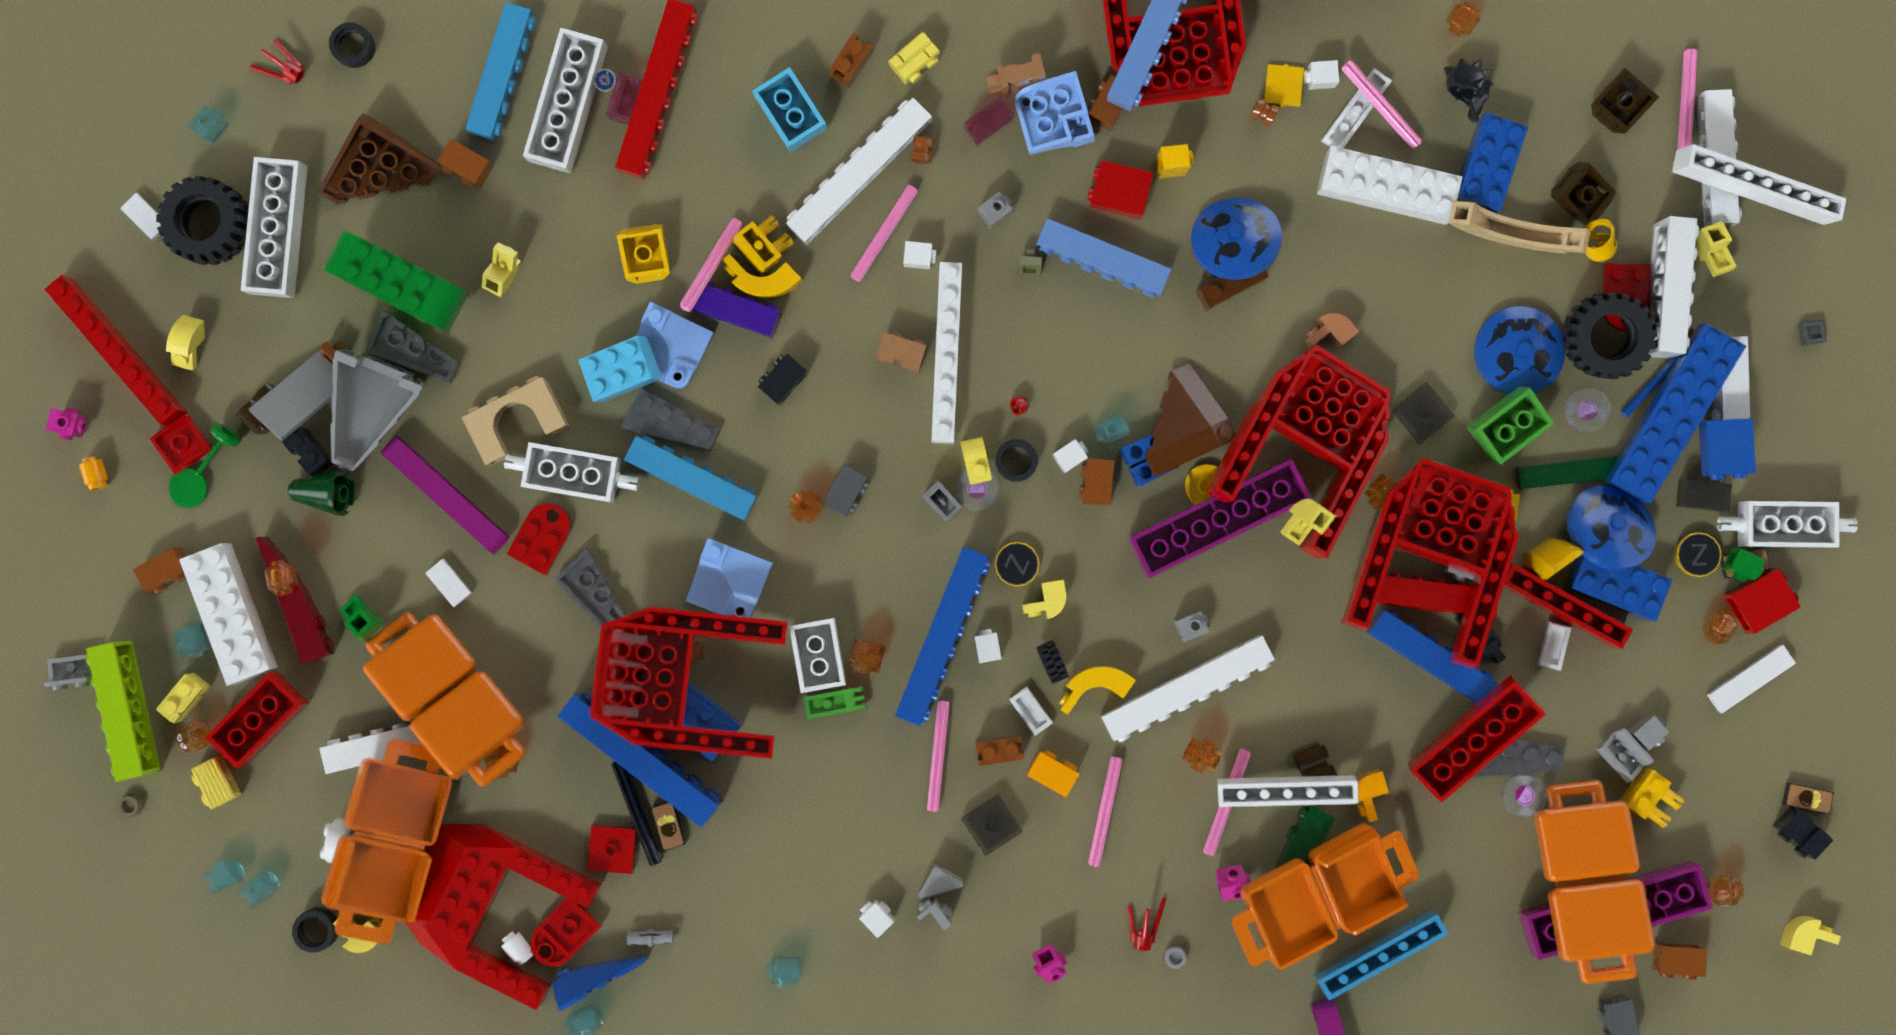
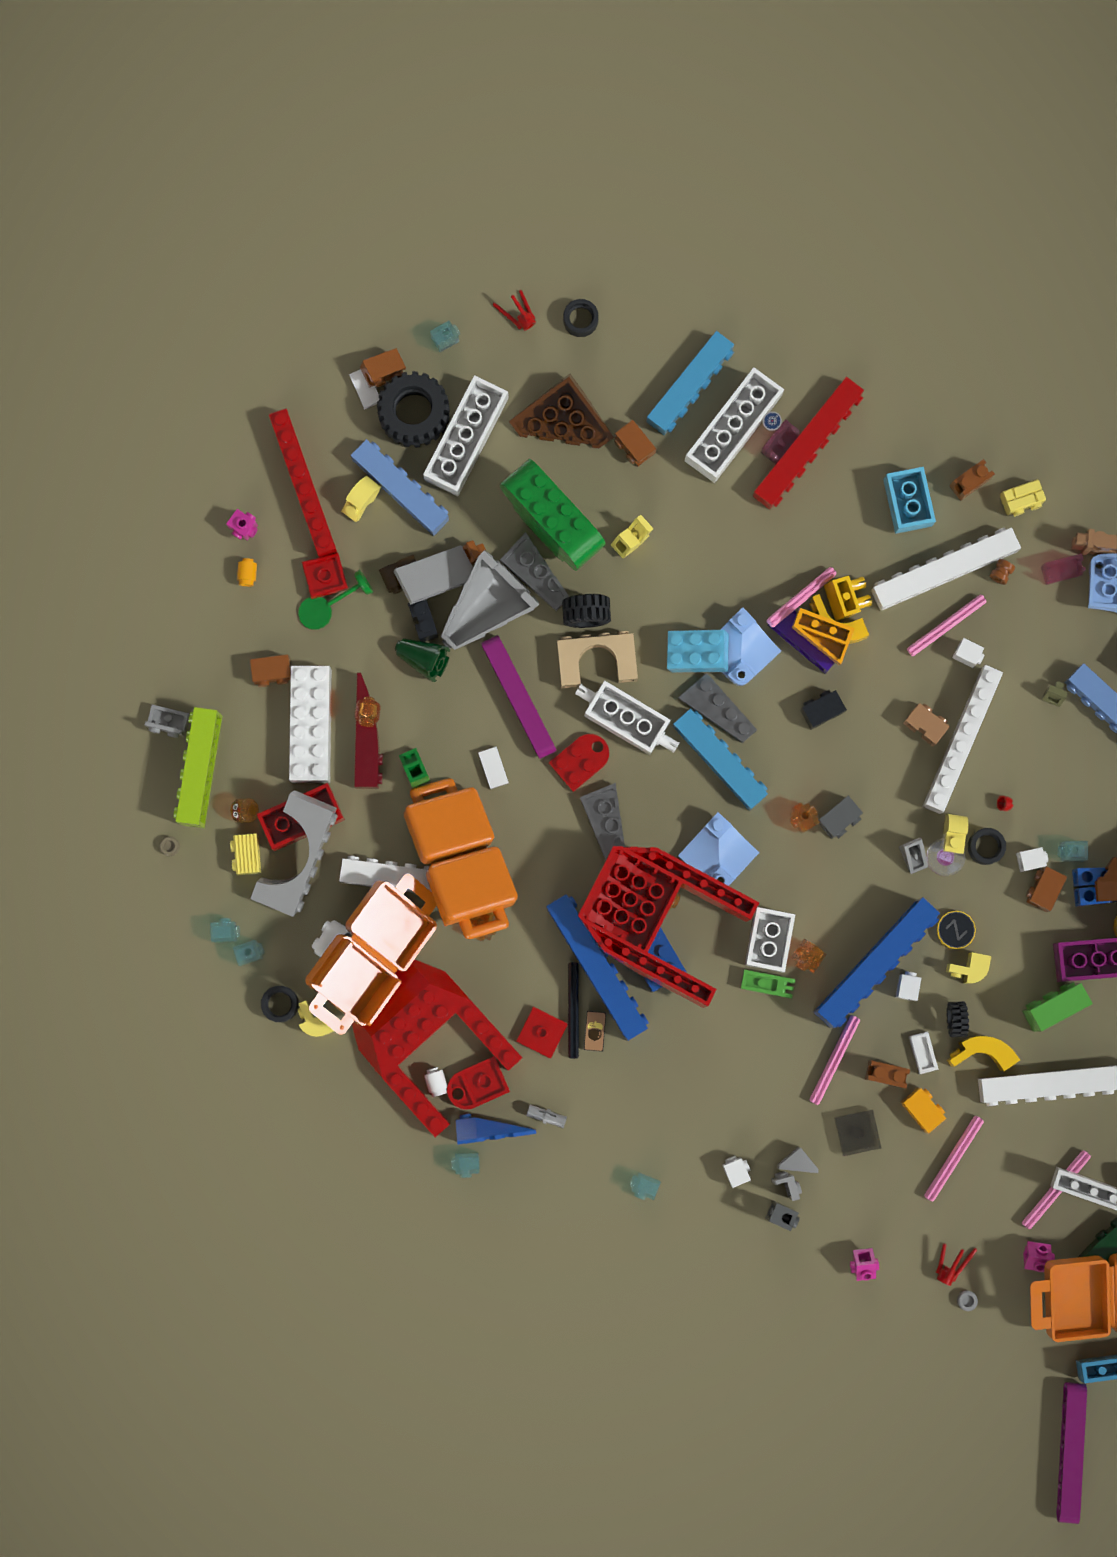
camera: 15 degrees right, 5 degrees down
(150, 186) = (382, 368): none -> dark orange brick
(183, 697) = (248, 776): light yellow brick -> none
(191, 641) = (271, 734): clear light blue brick -> none
(224, 313) = (399, 487): none -> medium blue brick
(270, 723) = (315, 820): none -> light grey arch
(479, 372) = (586, 610): none -> black tyre
(643, 253) = (750, 568): yellow slope -> none
(748, 296) = (825, 634): none -> light orange wedge
(942, 947) = (779, 1212): none -> dark grey brick
(995, 209) = (1043, 641): light grey brick -> none
(1154, 606) = (1056, 1006): none -> bright green brick
(1192, 626) = (1080, 1035): light grey brick -> none
(1202, 755) = (1051, 1142): clear orange brick -> none

